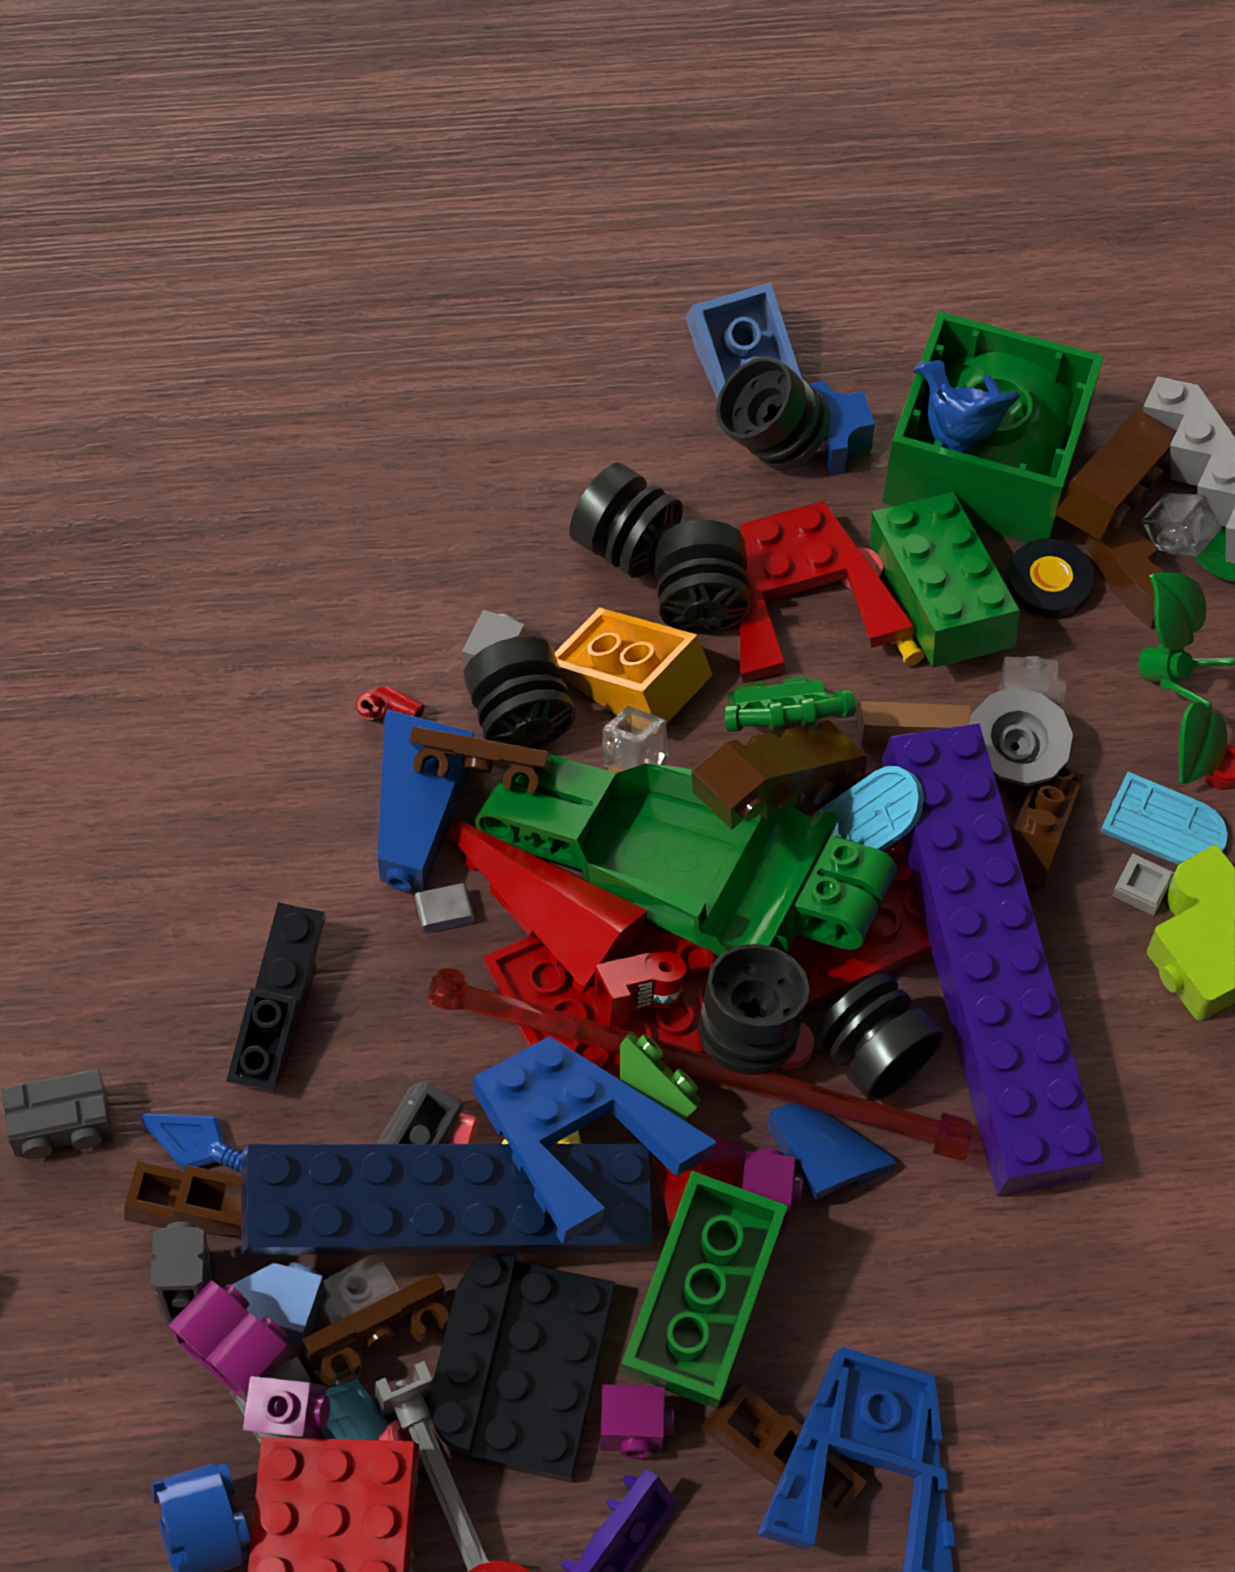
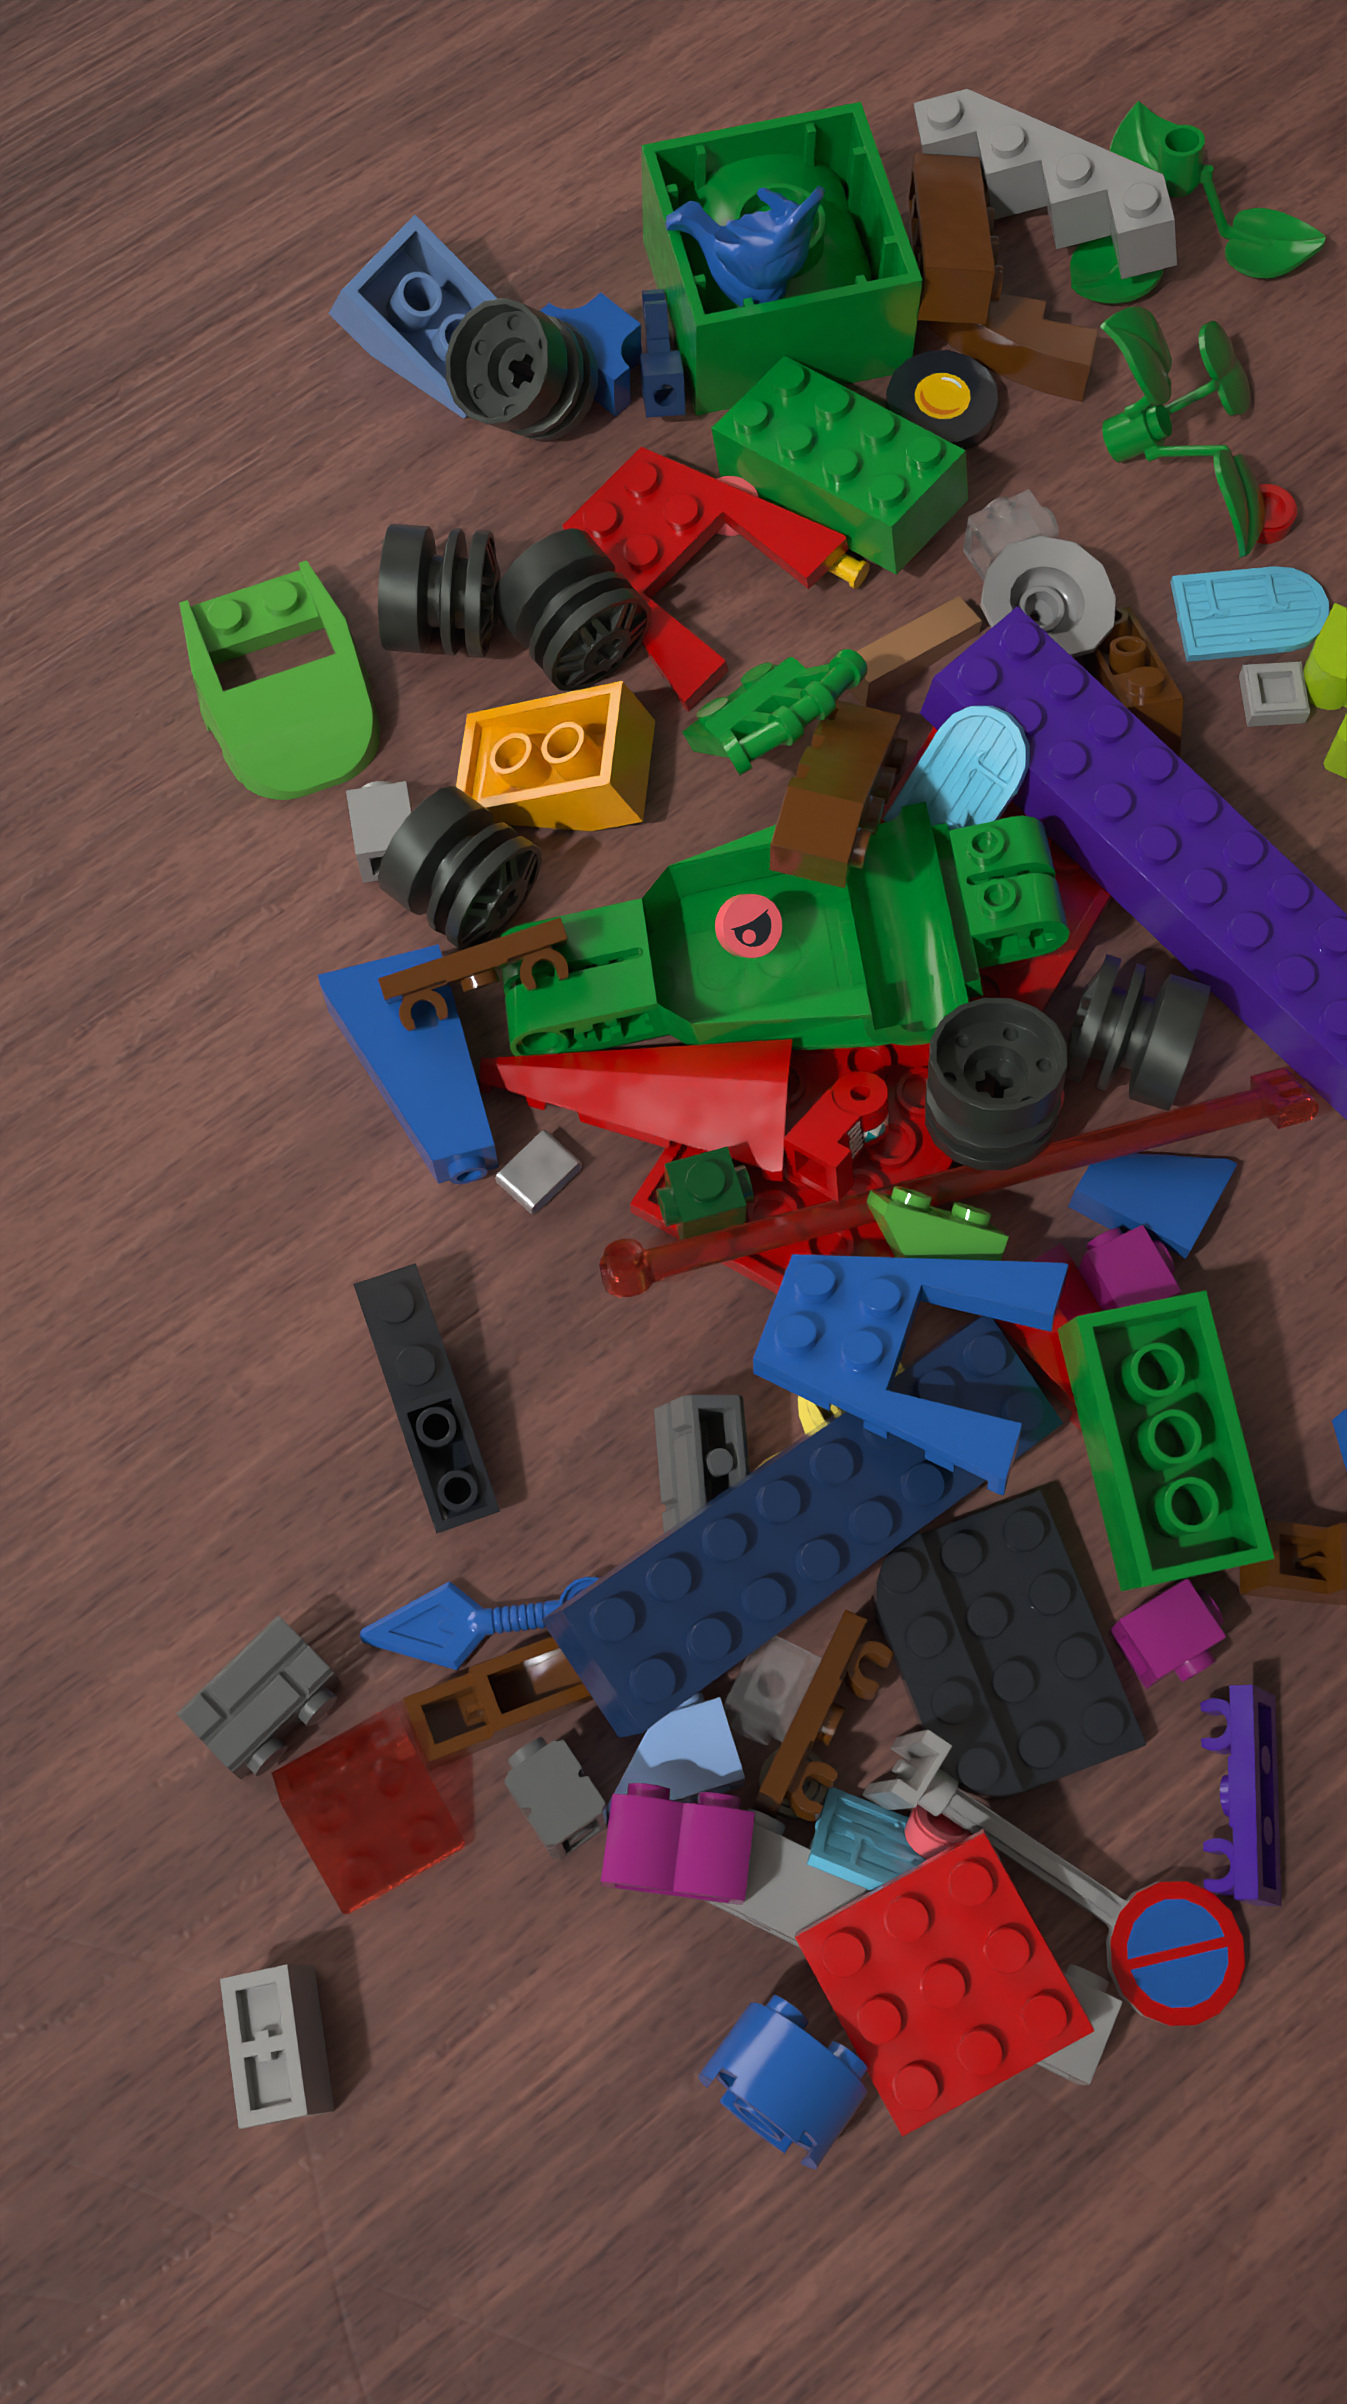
camera: 30 degrees left, 10 degrees up
(72, 1218) = (367, 1810): none -> clear red bracket
(286, 1407) = (806, 1887): brick -> none
(376, 702) = (300, 966): red arm -> none
(464, 1130) = (759, 1432): coral tile -> none
(489, 557) = (296, 726): none -> bright green slope
(526, 971) = (704, 1193): none -> dark green brick
(634, 740) = (628, 850): clear brick -> none
(666, 824) = (748, 925): none -> coral tile
(870, 462) = (660, 368): none -> dark blue piece
(1181, 524) = (1048, 259): clear brick -> none

